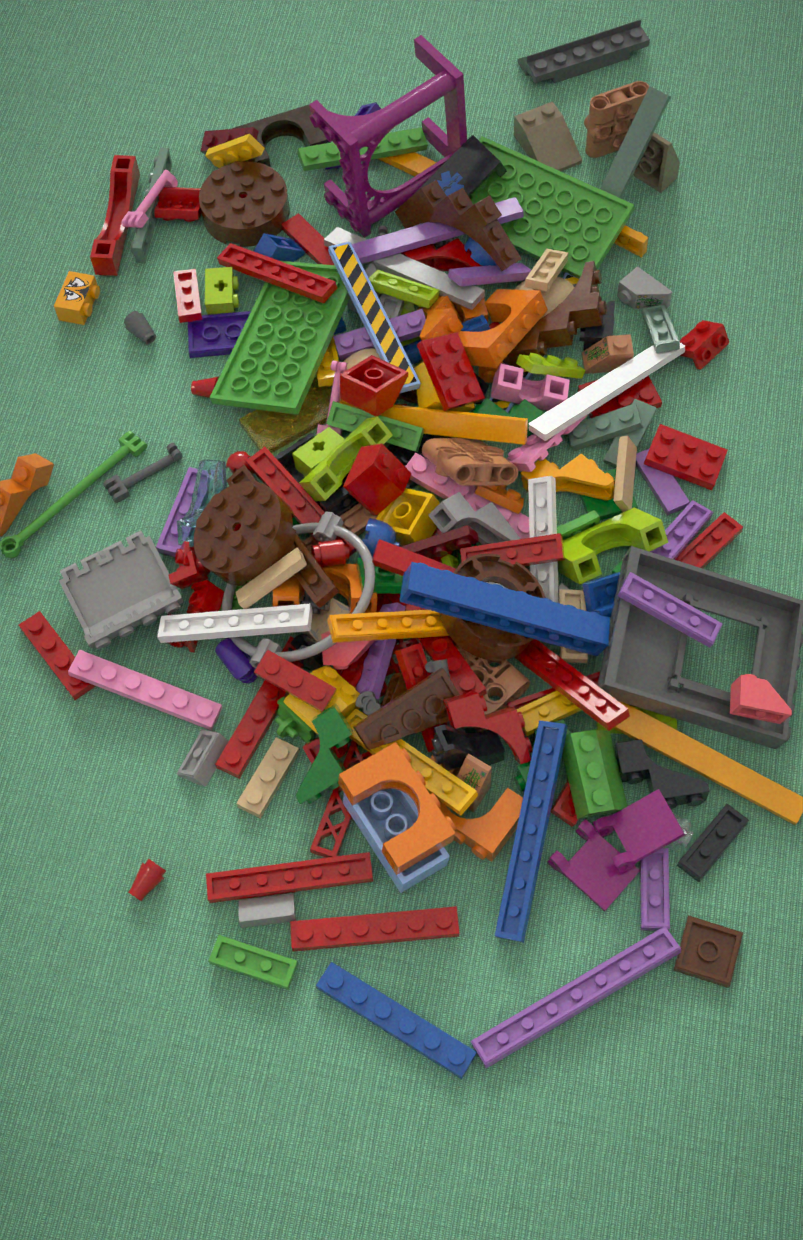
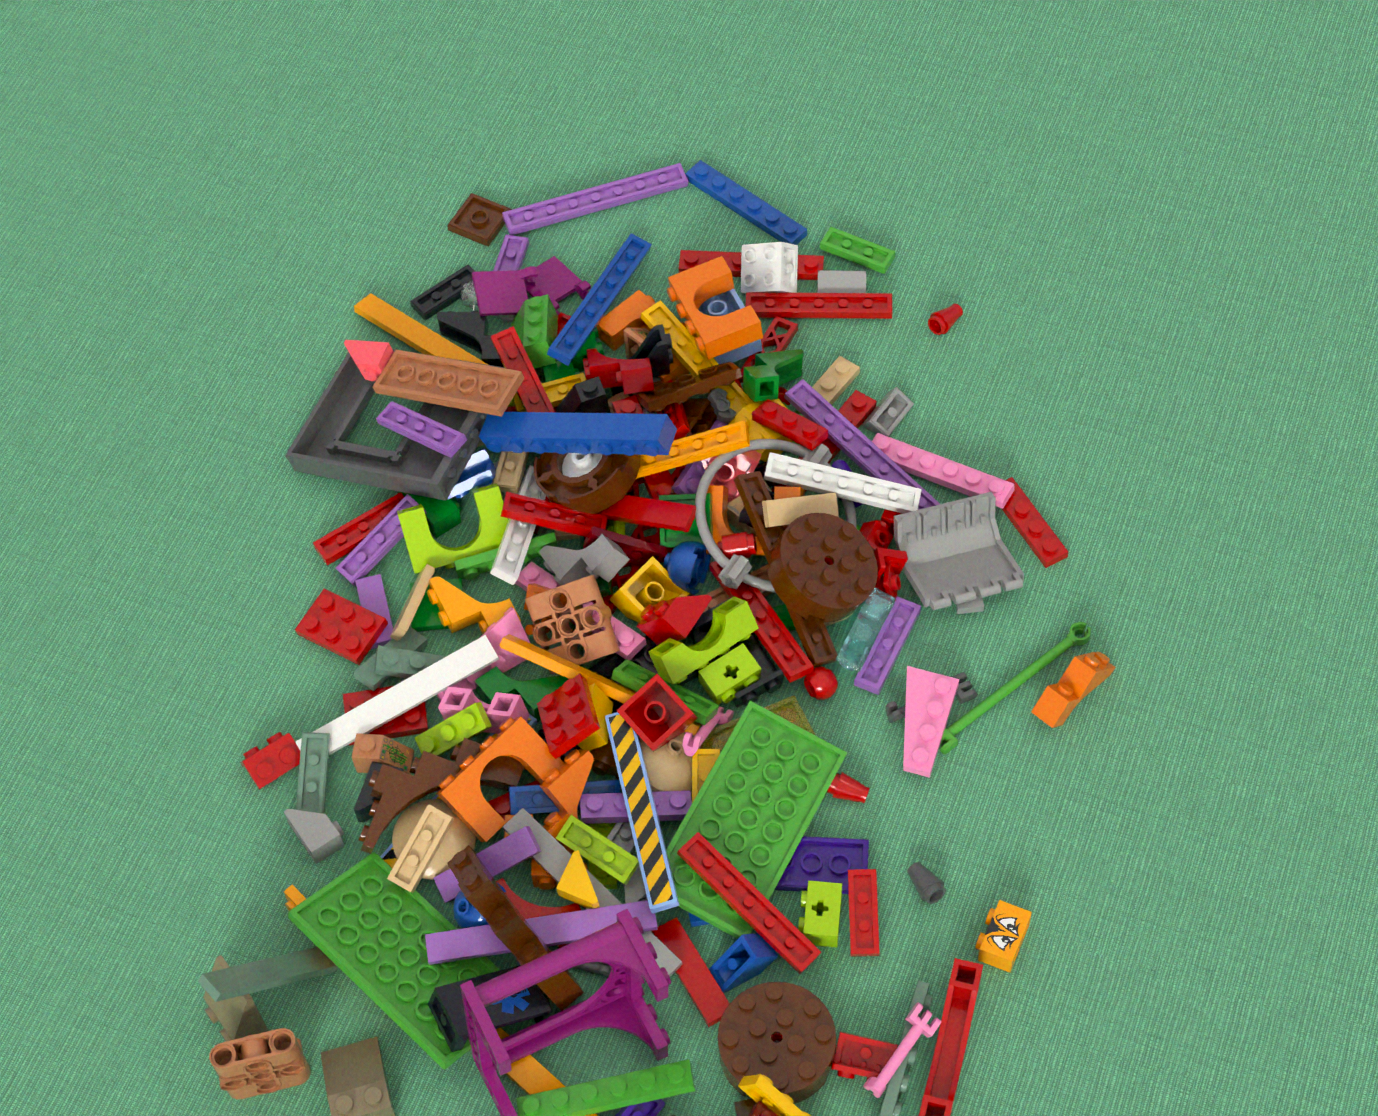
camera: 170 degrees left, 5 degrees down
(145, 452) = (926, 715): none -> bright pink wing
(222, 692) = (851, 439): none -> medium lavender tile
(349, 900) = (769, 267): none -> white bracket
(411, 255) = (576, 884): none -> yellow slope
(515, 687) = (585, 398): none -> black slope
(658, 659) = (449, 382): none -> nougat plate

